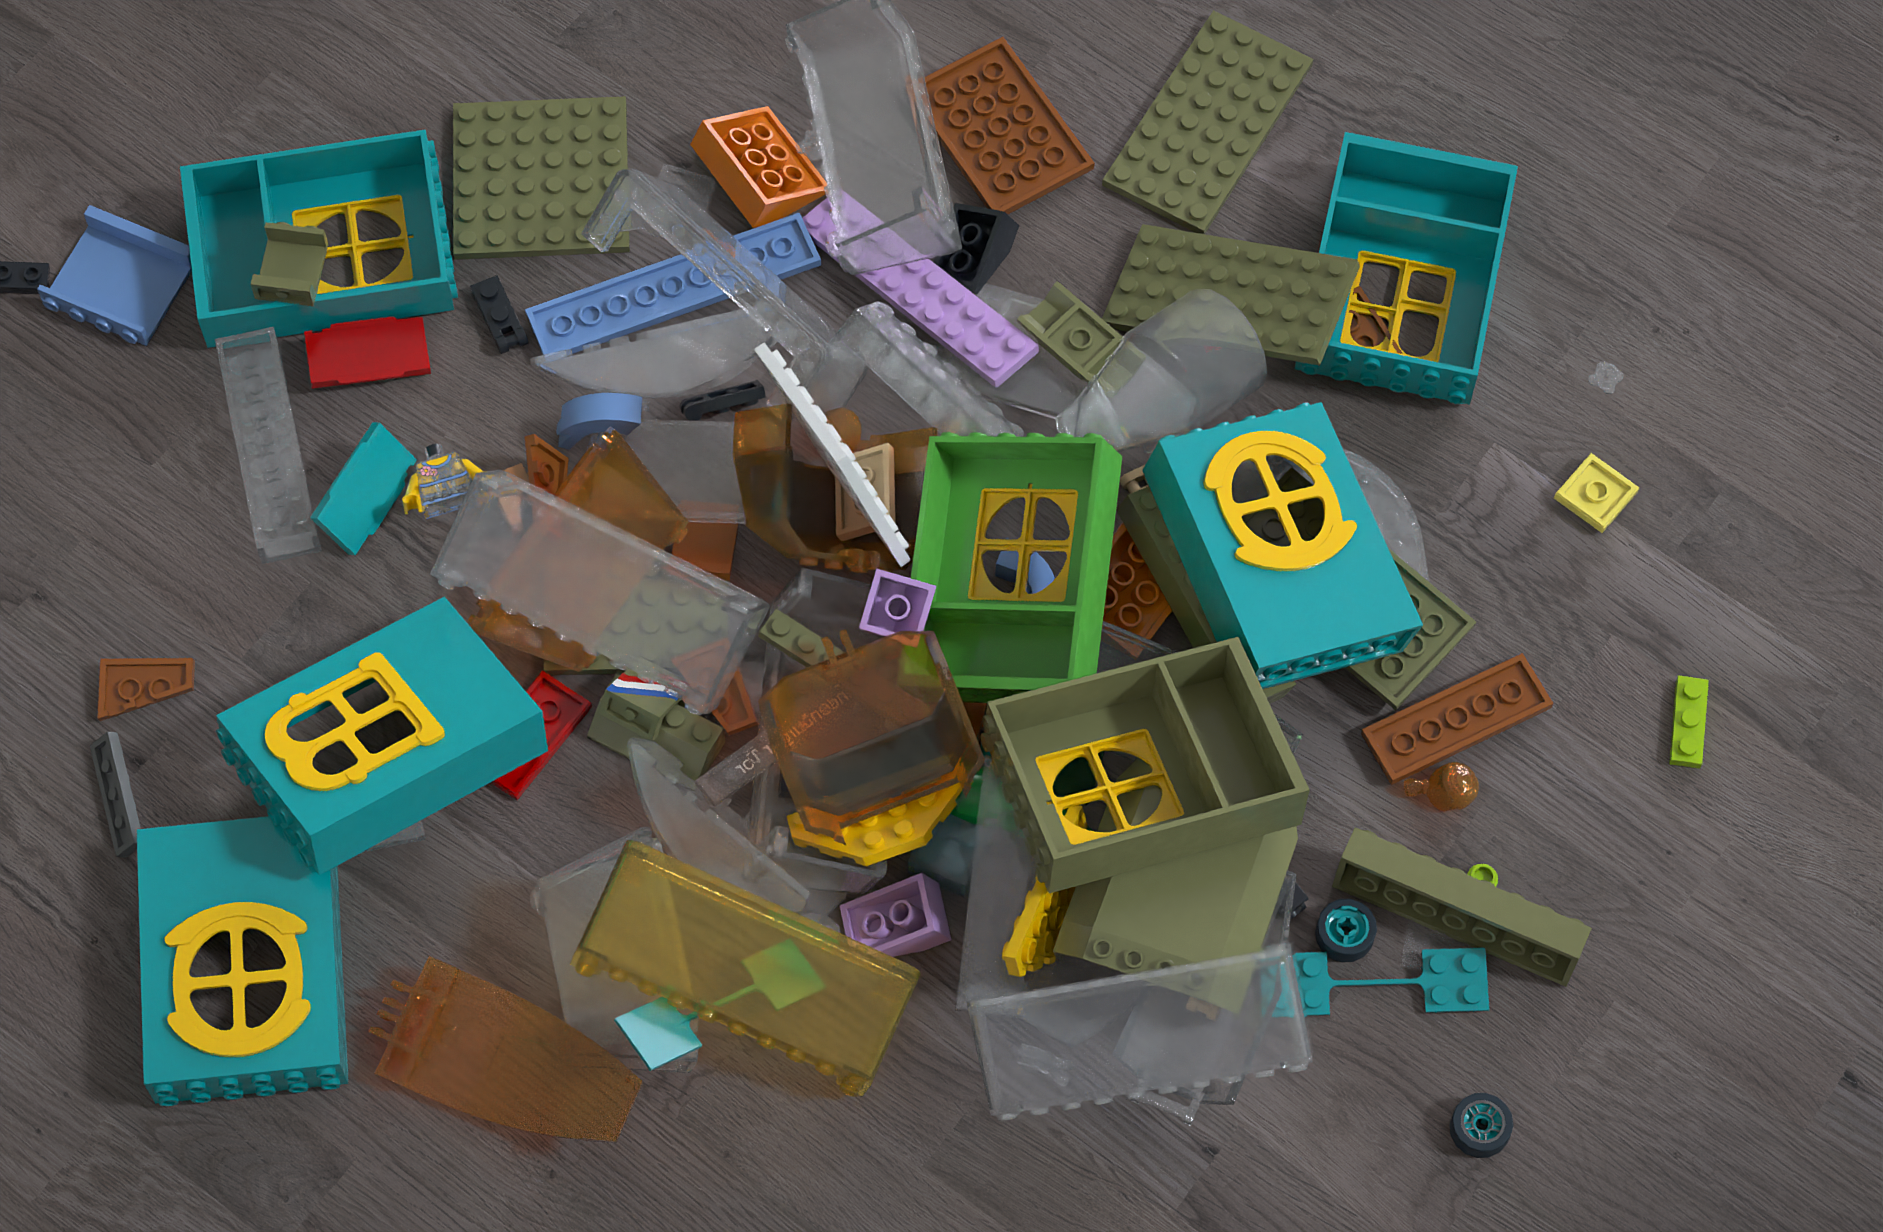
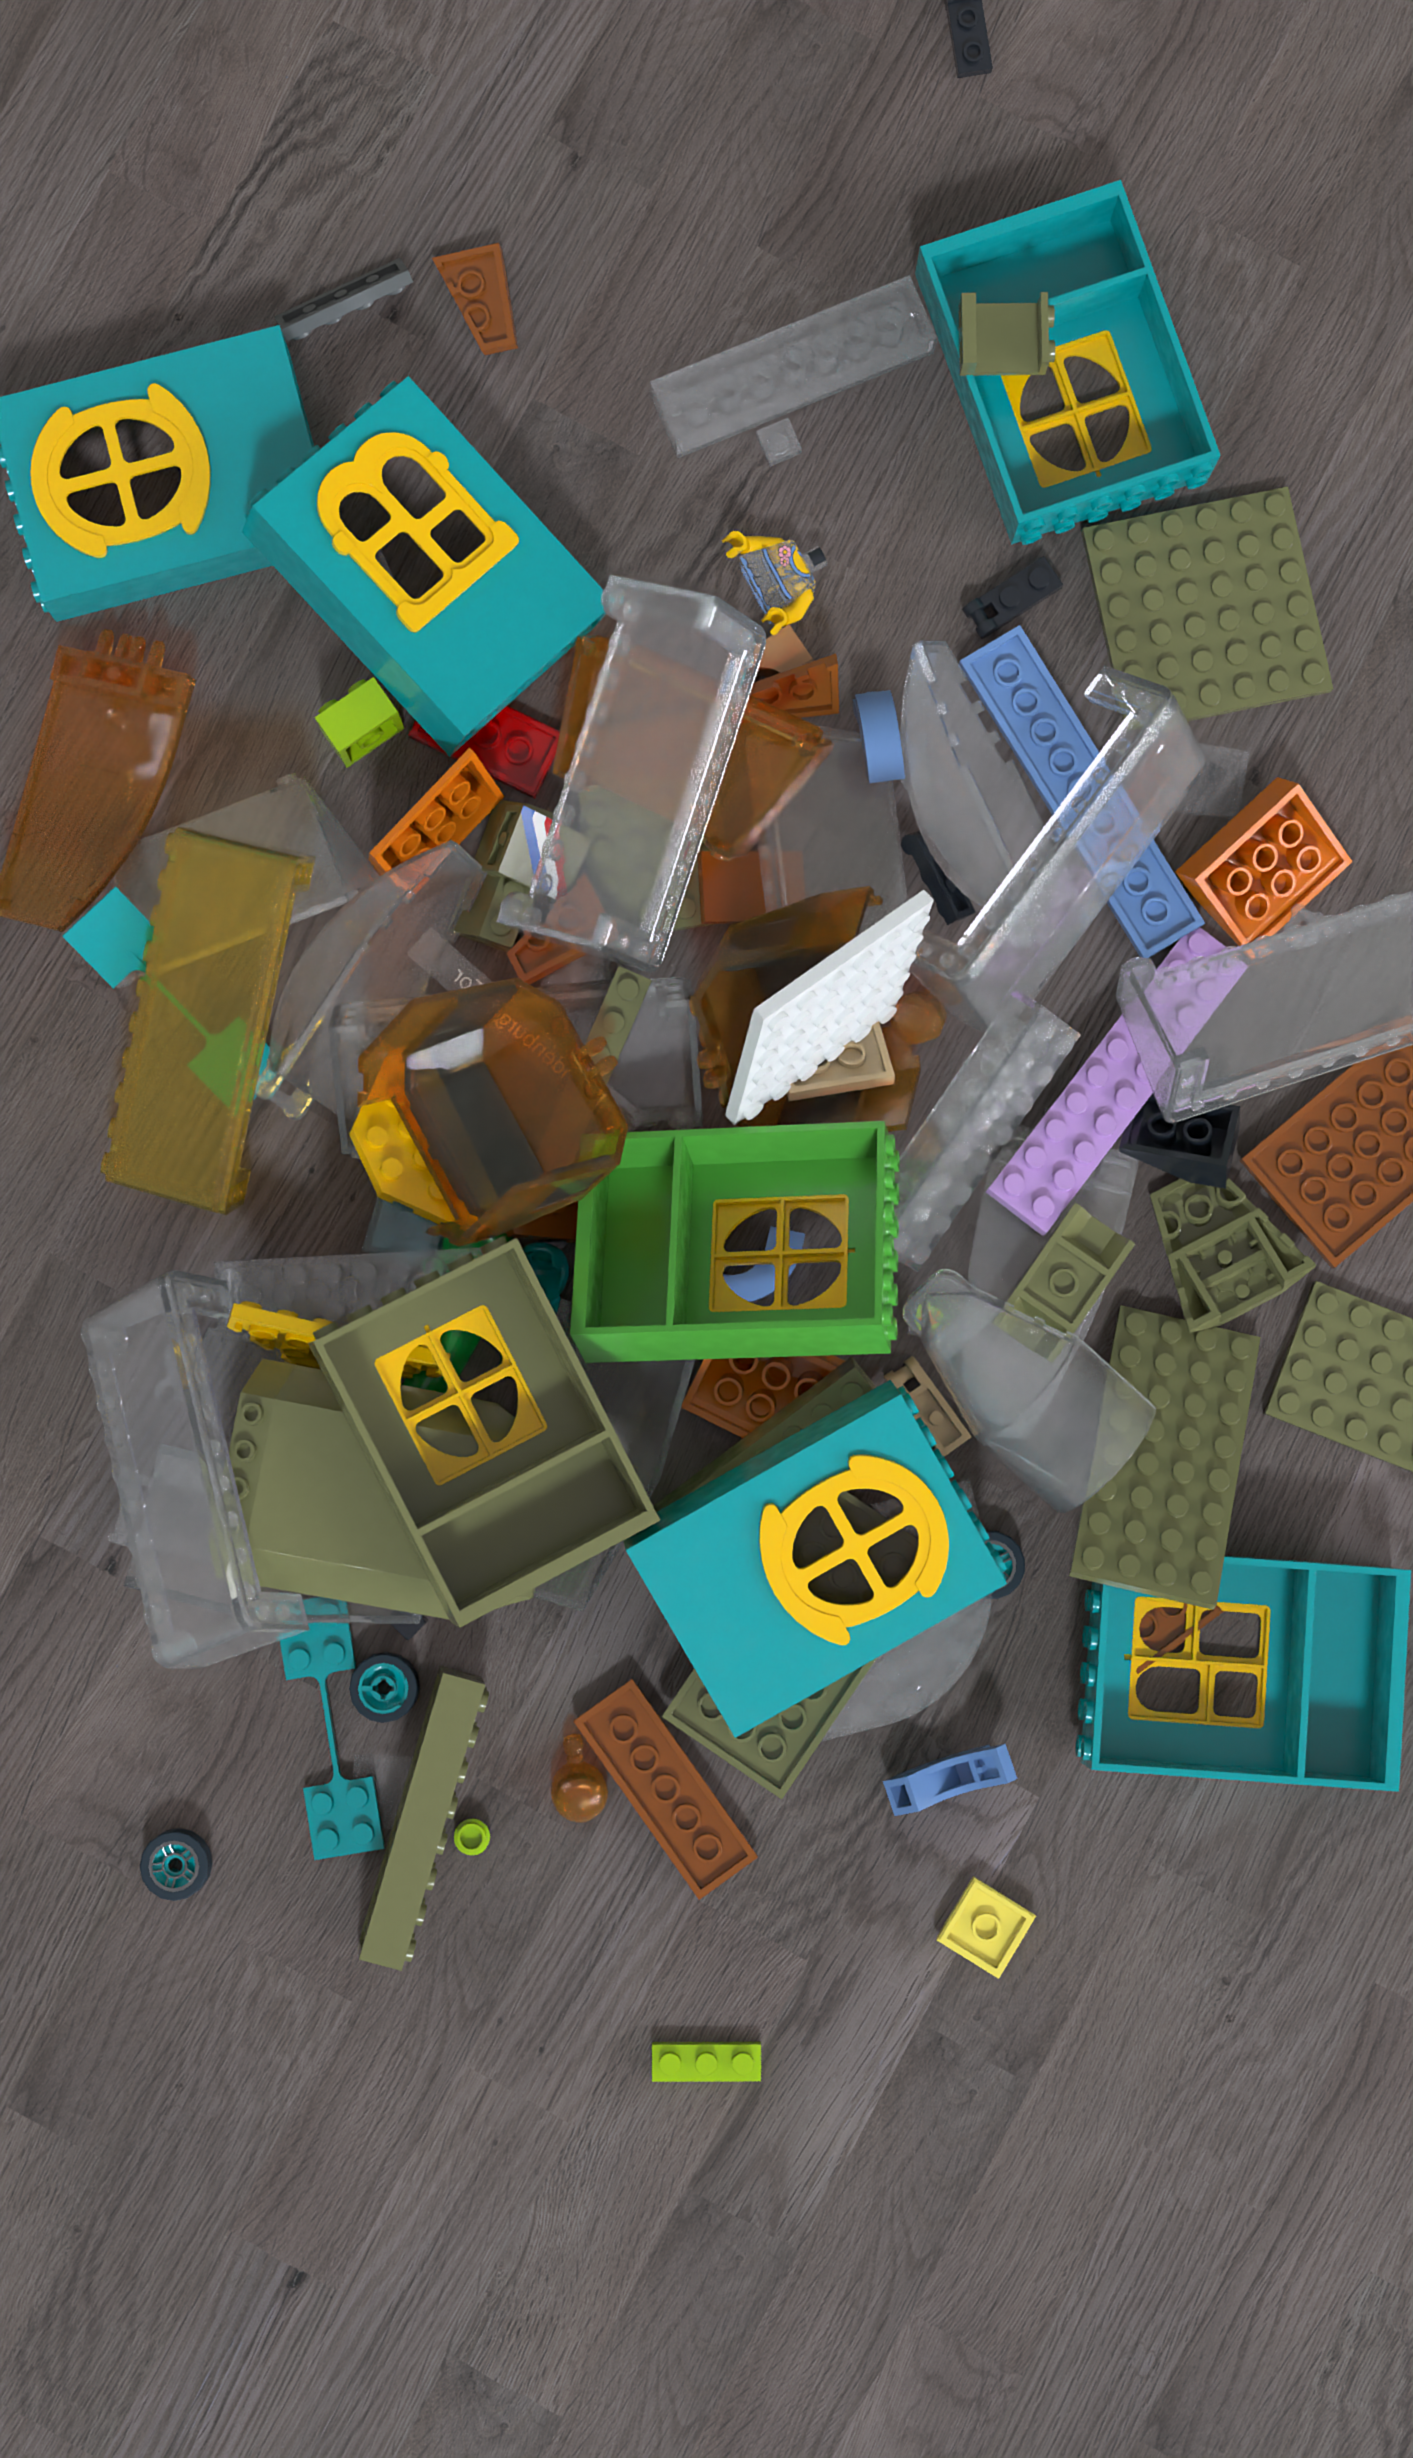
camera: 80 degrees right, 20 degrees up
(119, 277) = (983, 150): medium blue panel -> none
(325, 467) = (778, 442): none -> clear plate
(364, 489) = (751, 487): teal piece -> none
(367, 351) = (934, 455): red piece -> none
(498, 826) = (359, 721): none -> lime brick
(596, 773) = (443, 814): none -> orange slope
(896, 604) = (665, 1117): lavender slope -> none
(899, 917) = (319, 1180): lavender slope -> none
(1067, 238) = (1223, 1252): none -> olive wedge
(1469, 495) = (949, 1777): none -> medium blue arch
(1608, 370) = (1150, 1934): clear plate -> none

